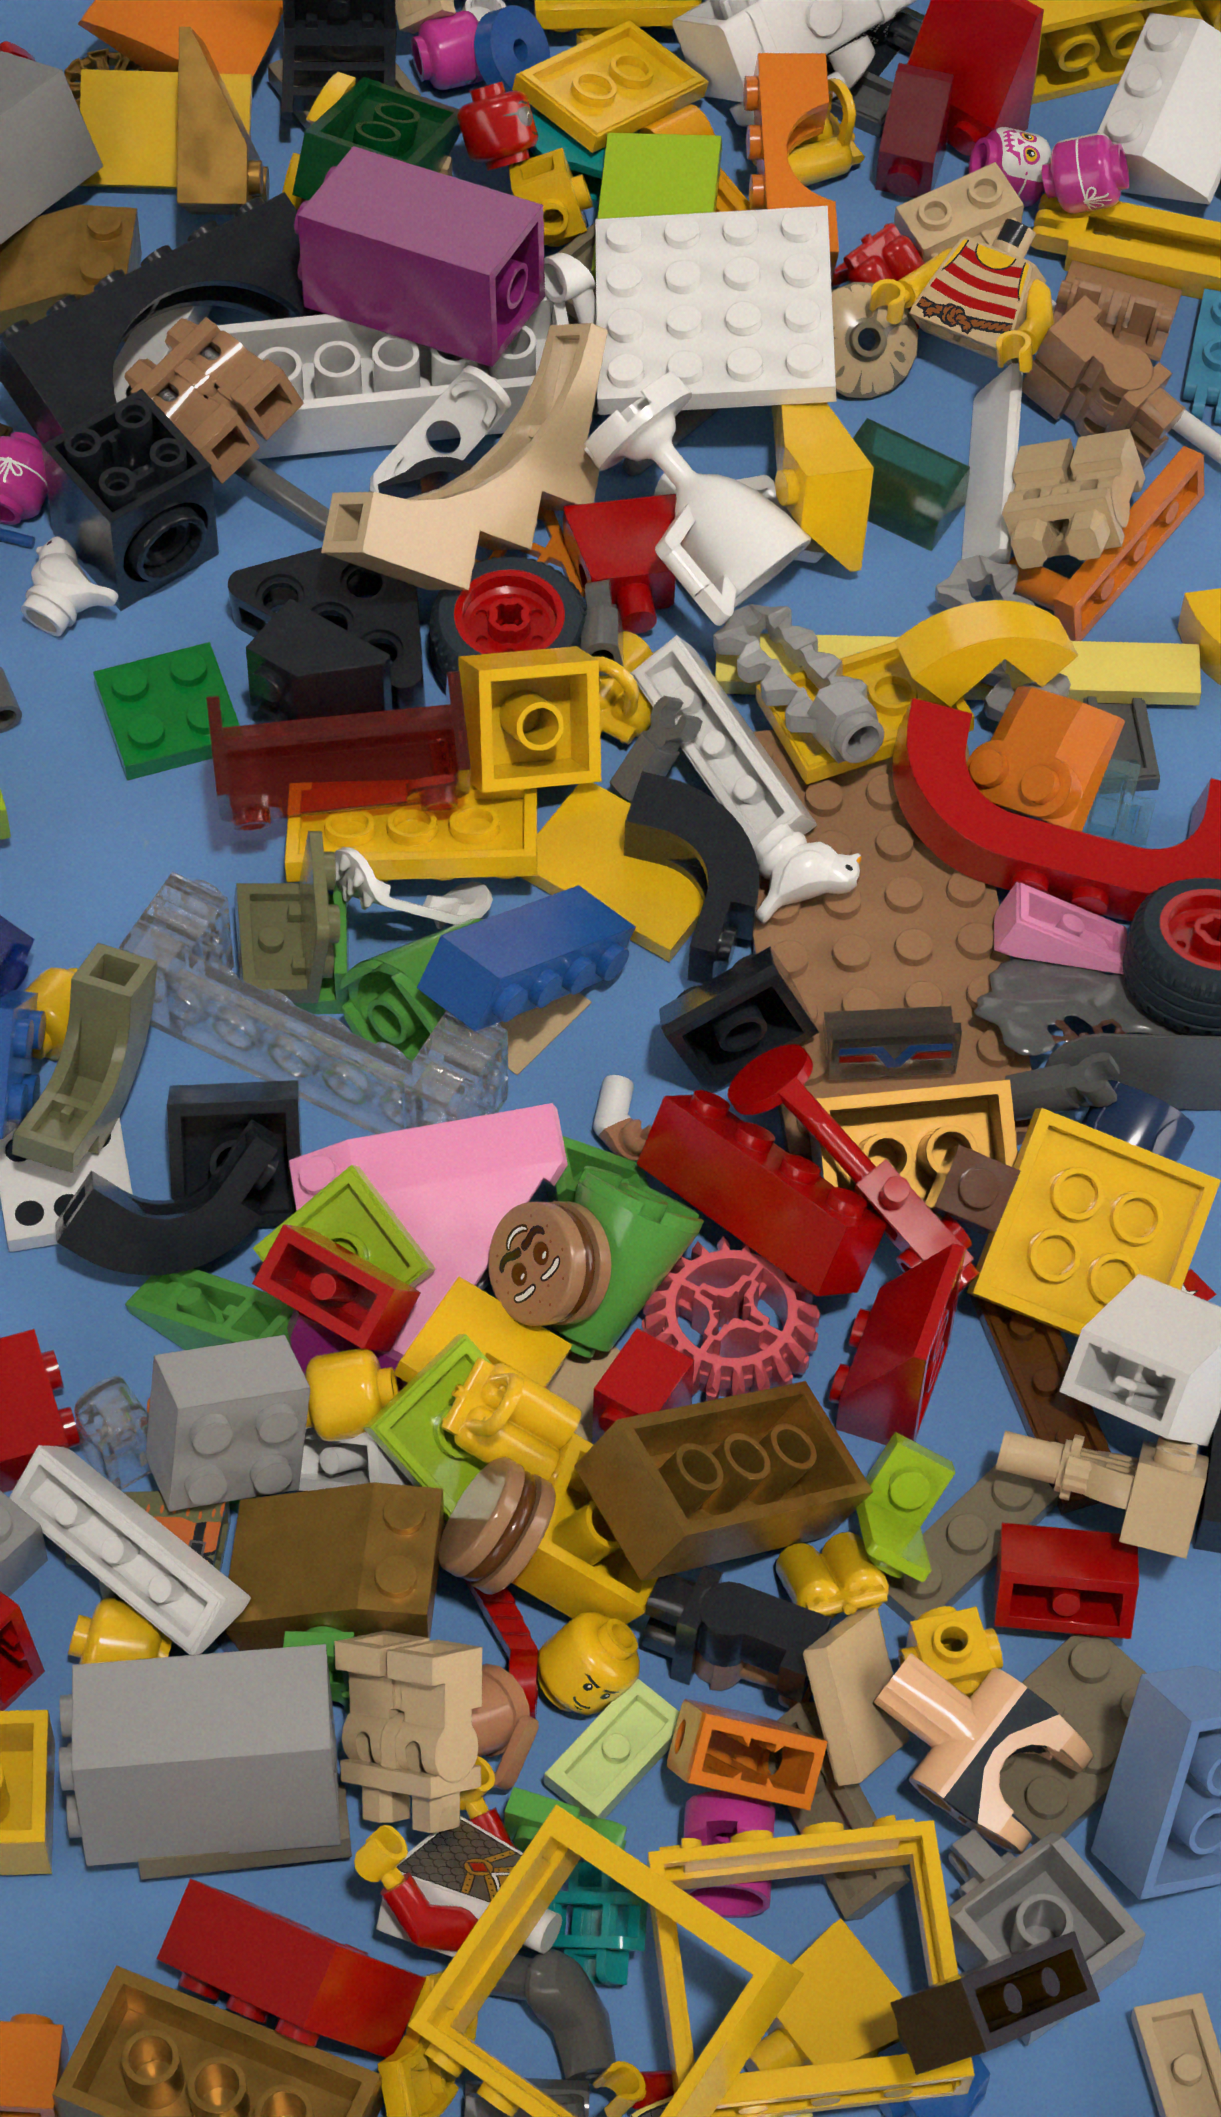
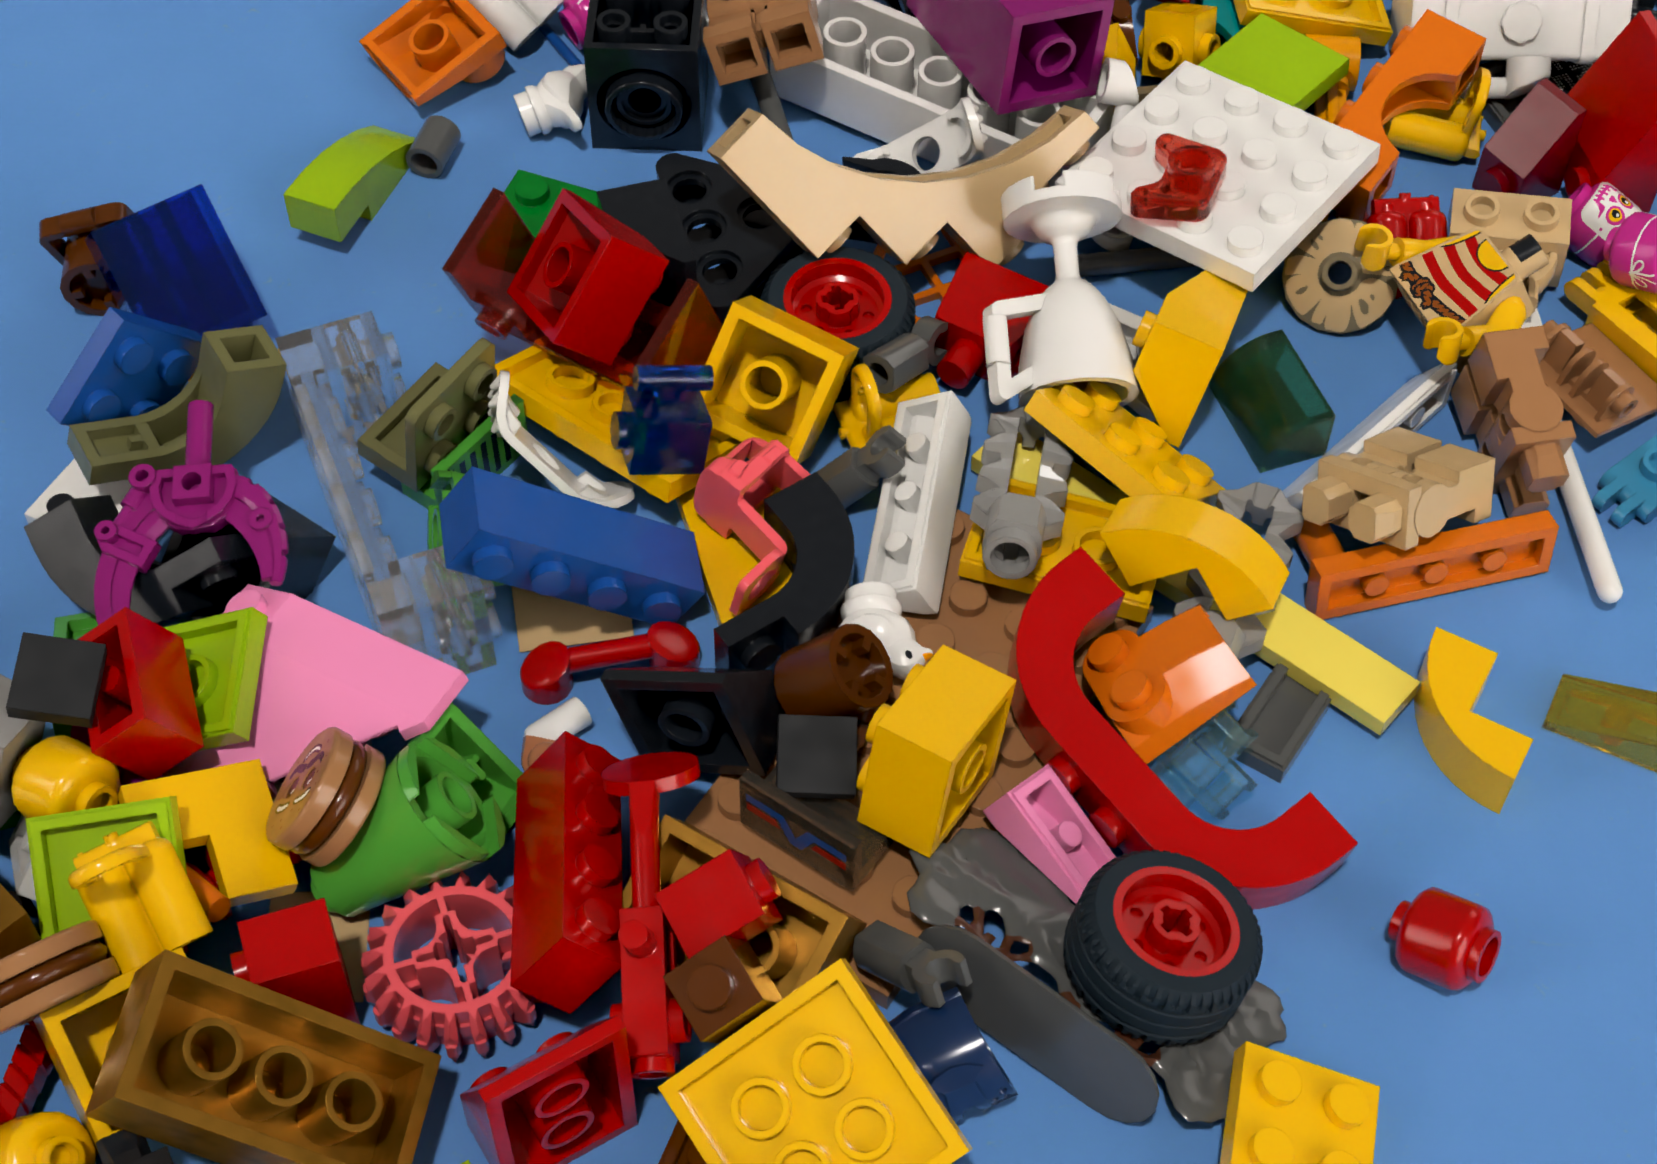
camera: 40 degrees right, 5 degrees down
(191, 1126) = (188, 501): none -> magenta bar
(294, 1312) = (56, 680): none -> black piece
(310, 728) = (587, 278): none -> red slope
(498, 807) = (664, 420): none -> clear blue brick
(564, 1065) = (550, 667): none -> red bar
(587, 836) = (728, 501): none -> coral piece
(719, 335) = (1188, 184): none -> clear red piece
(820, 925) = (836, 676): none -> reddish brown piece
(841, 597) = (1119, 445): none -> yellow plate
(859, 987) = (817, 756): none -> black piece
(923, 1131) = (721, 899): none -> red brick
(947, 923) = (933, 749): none -> yellow brick

